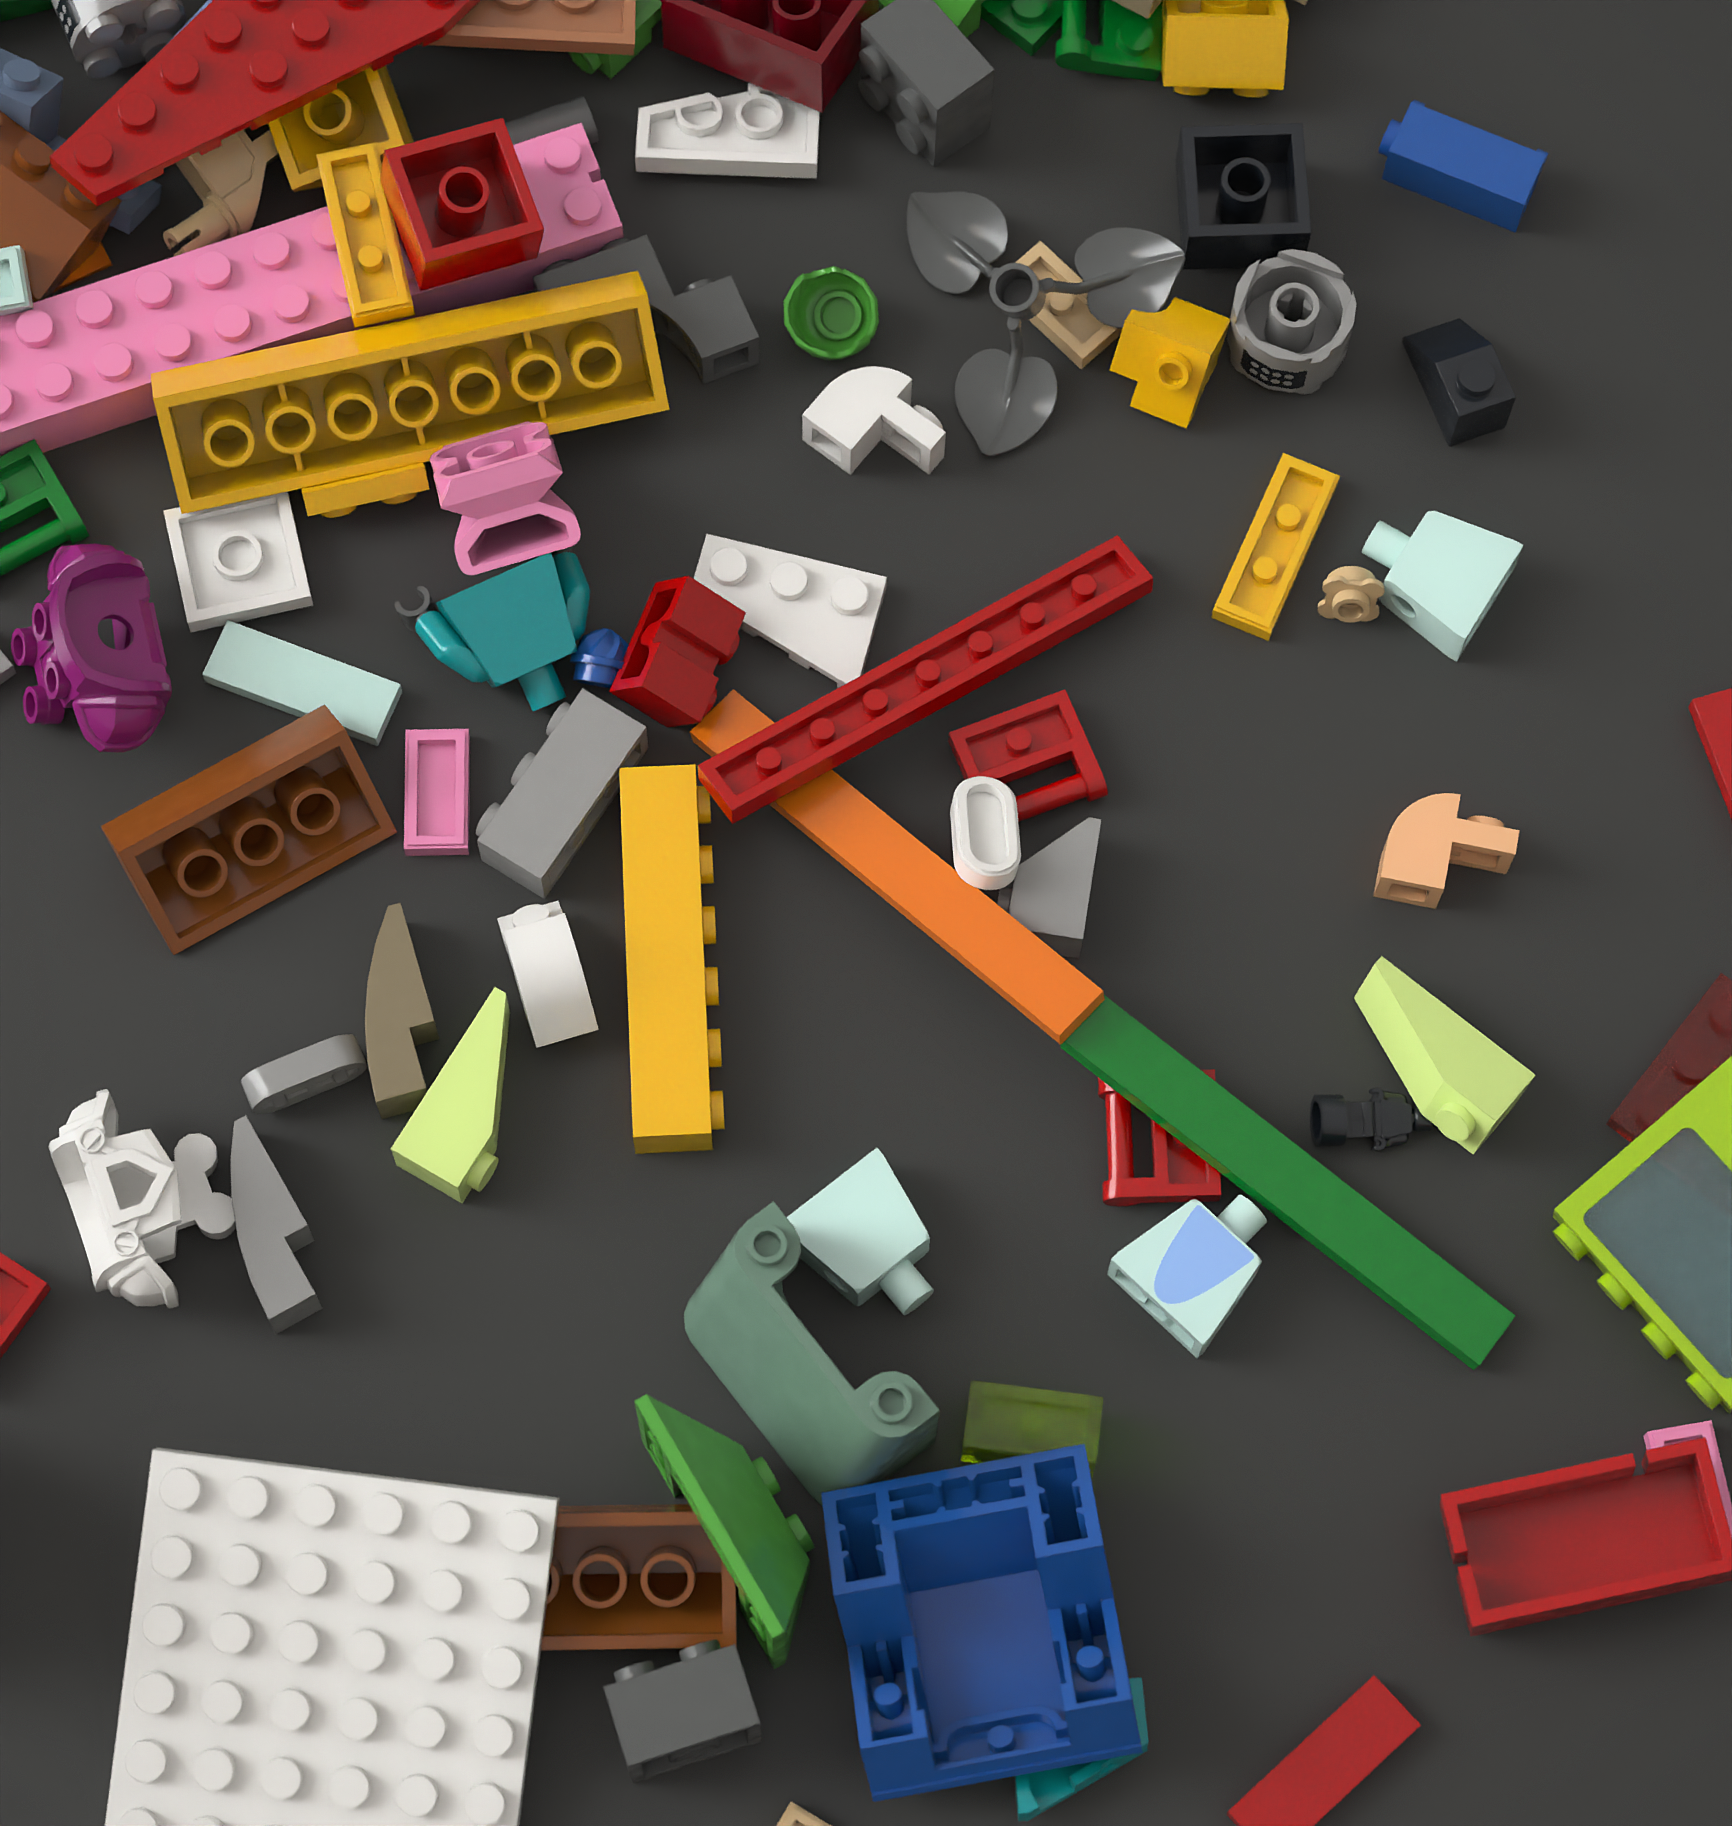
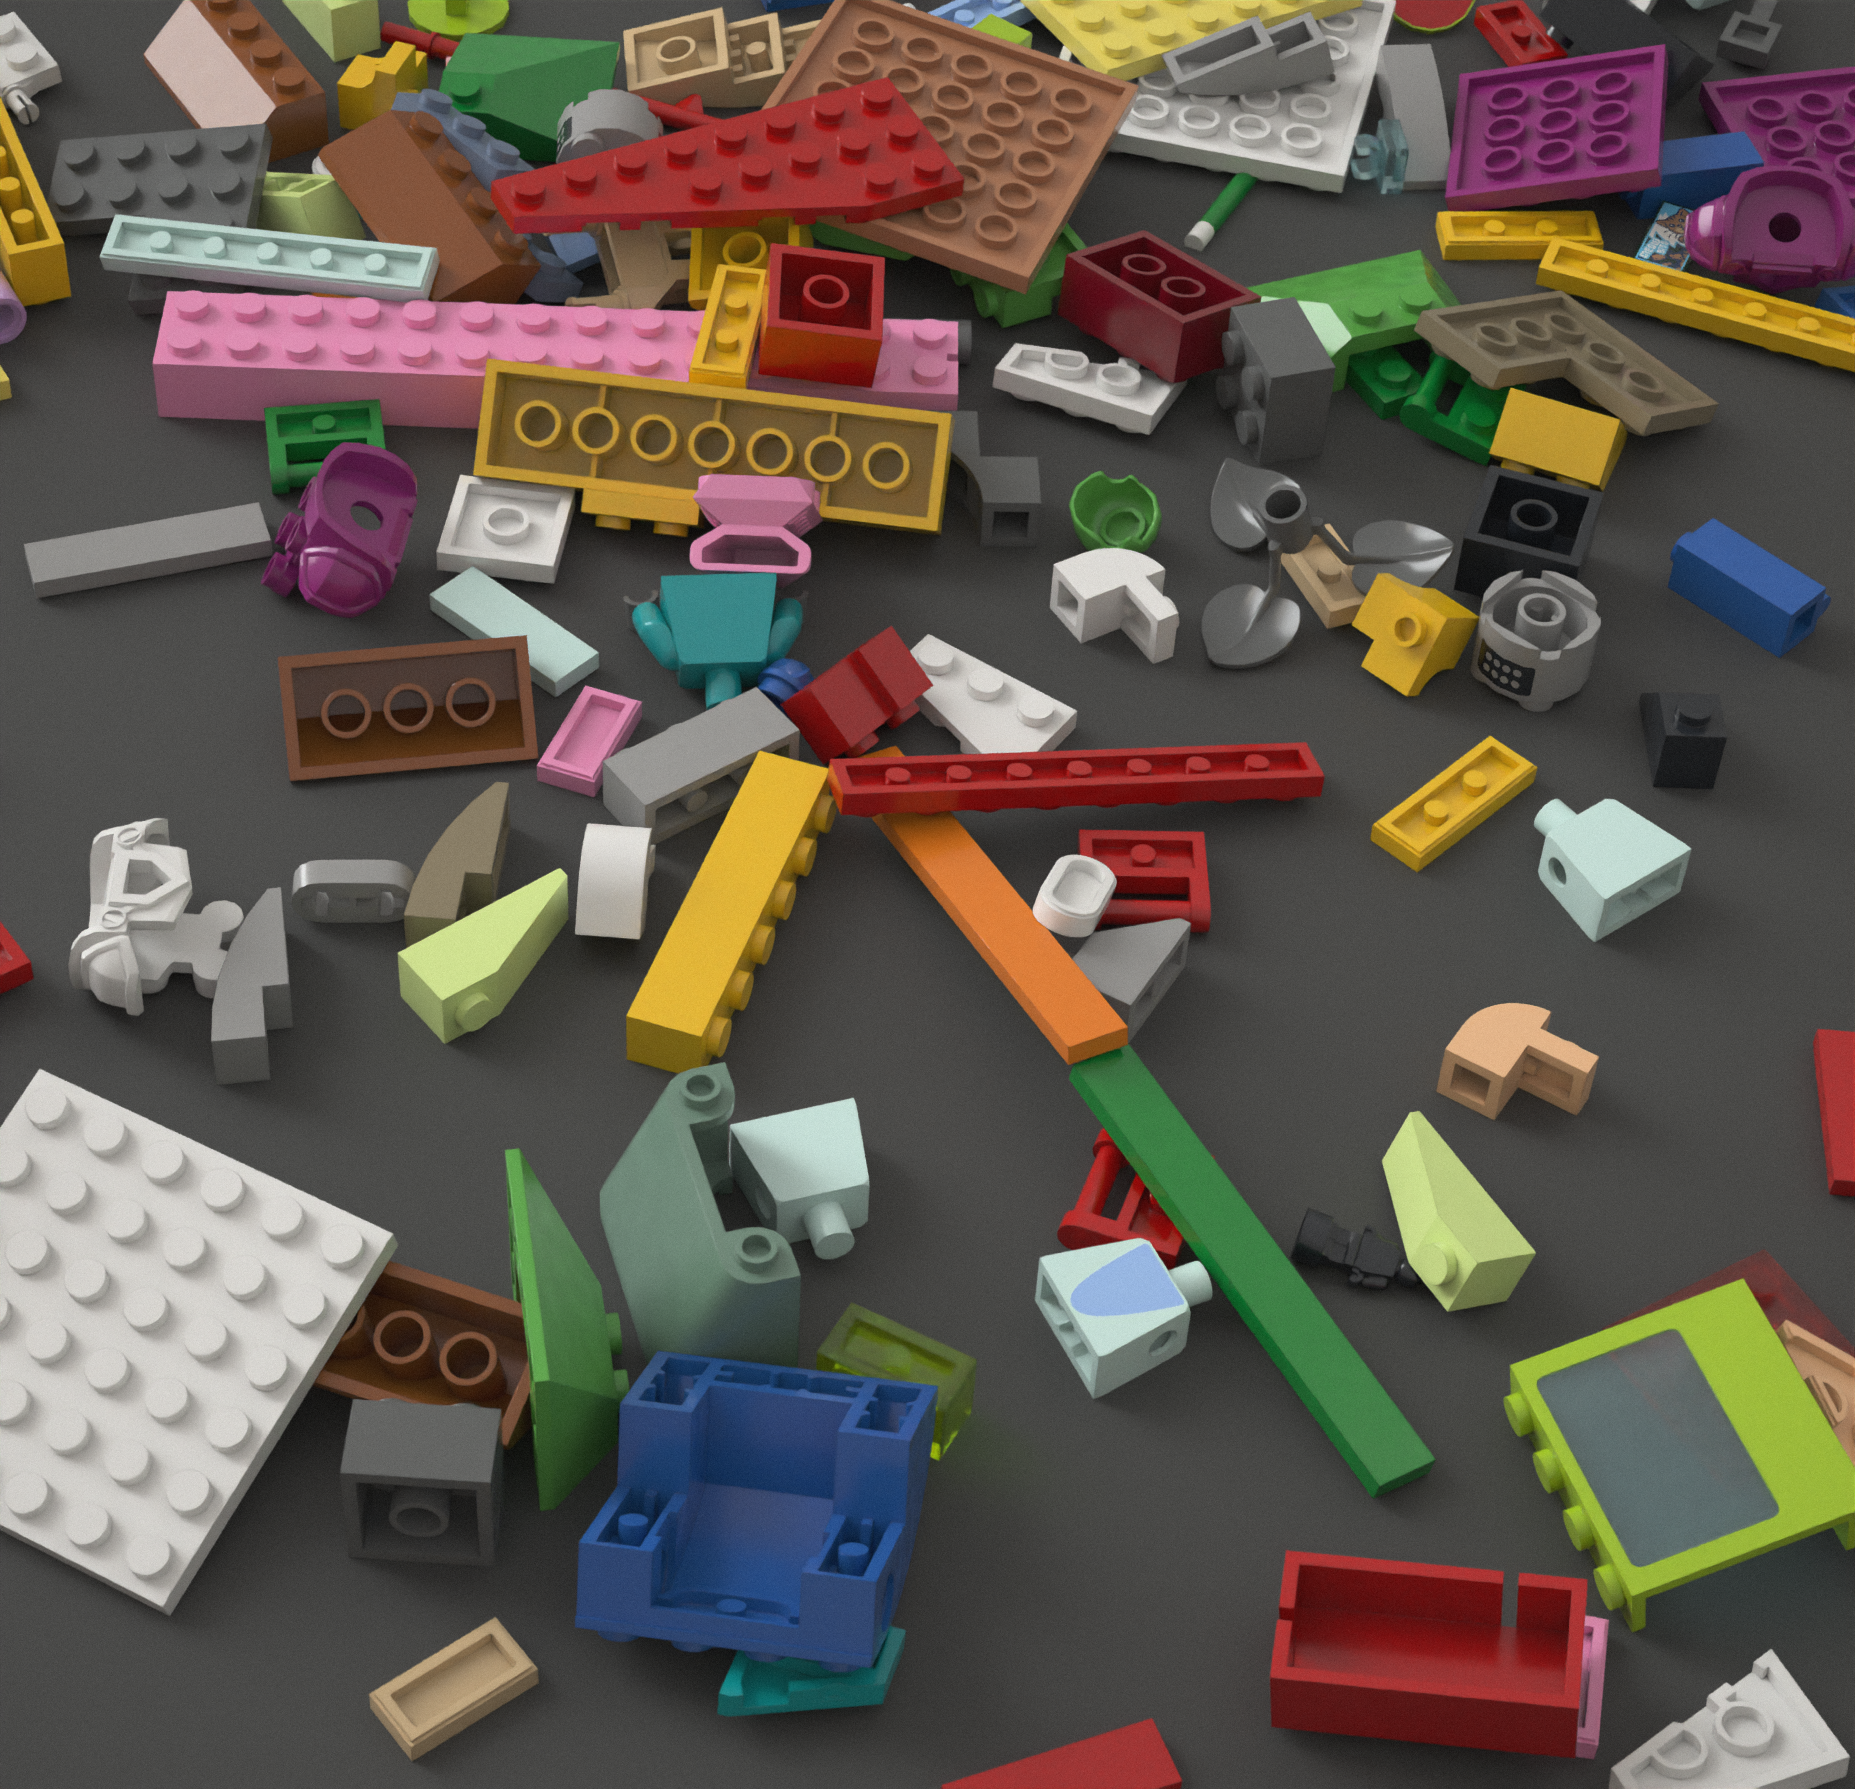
camera: 20 degrees right, 25 degrees down
(1351, 595) = (1518, 839): tan plate -> none

